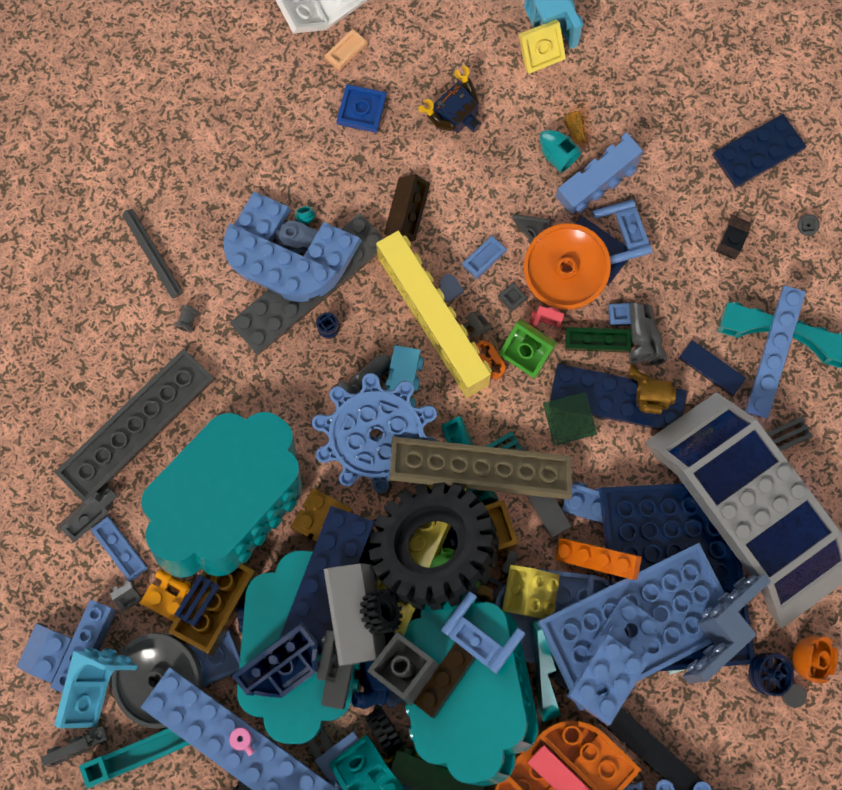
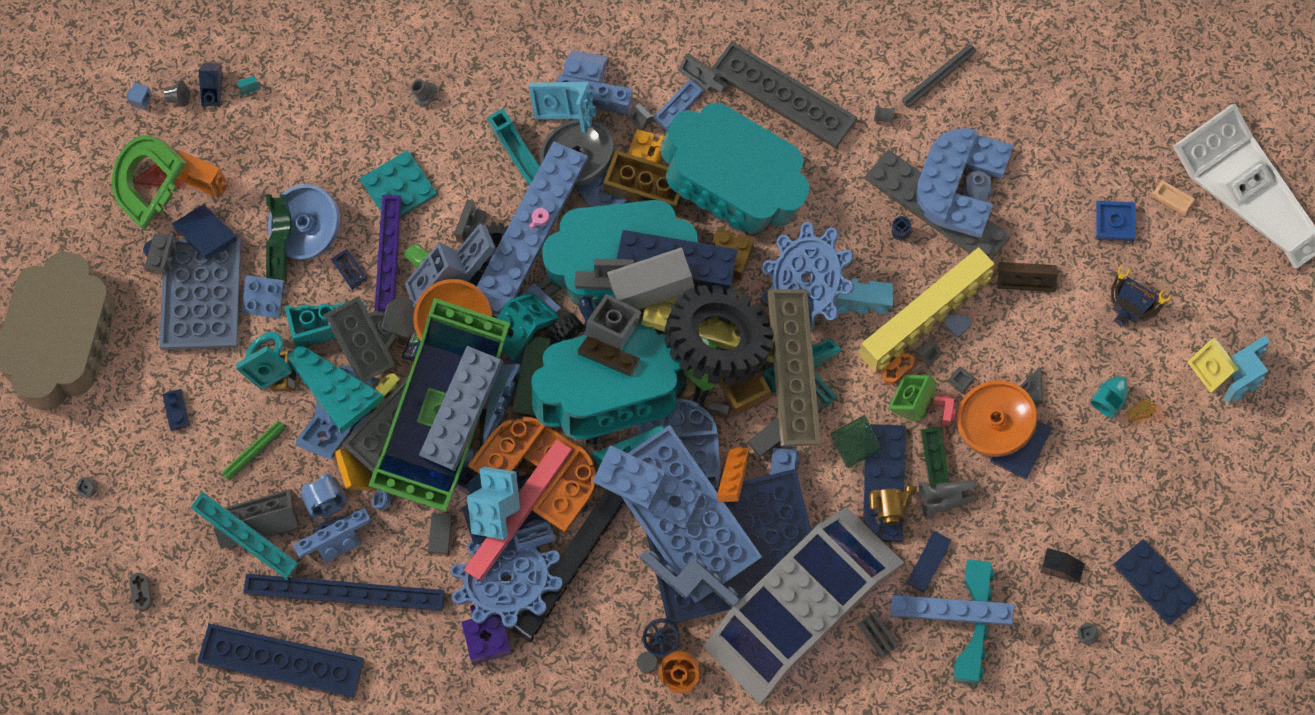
camera: 85 degrees right, 5 degrees down
(76, 747) = (516, 106): dark grey hinge -> none
(179, 613) = (645, 159): dark blue tile -> none
(280, 665) = (599, 230): dark blue wedge -> none
(305, 214) = (1000, 191): teal plate -> none
(378, 366) = (861, 266): dark grey piece -> none
(378, 602) = (650, 290): black tyre -> none
(476, 641) = (644, 370): medium blue plate -> none
(484, 257) = (994, 350): medium blue tile -> none
(531, 592) = (695, 425): light yellow bracket -> none
(600, 175) = (1092, 435): medium blue wedge -> none
(619, 314) = (964, 472): medium blue tile -> none
(631, 230) = (1045, 472): medium blue plate -> none

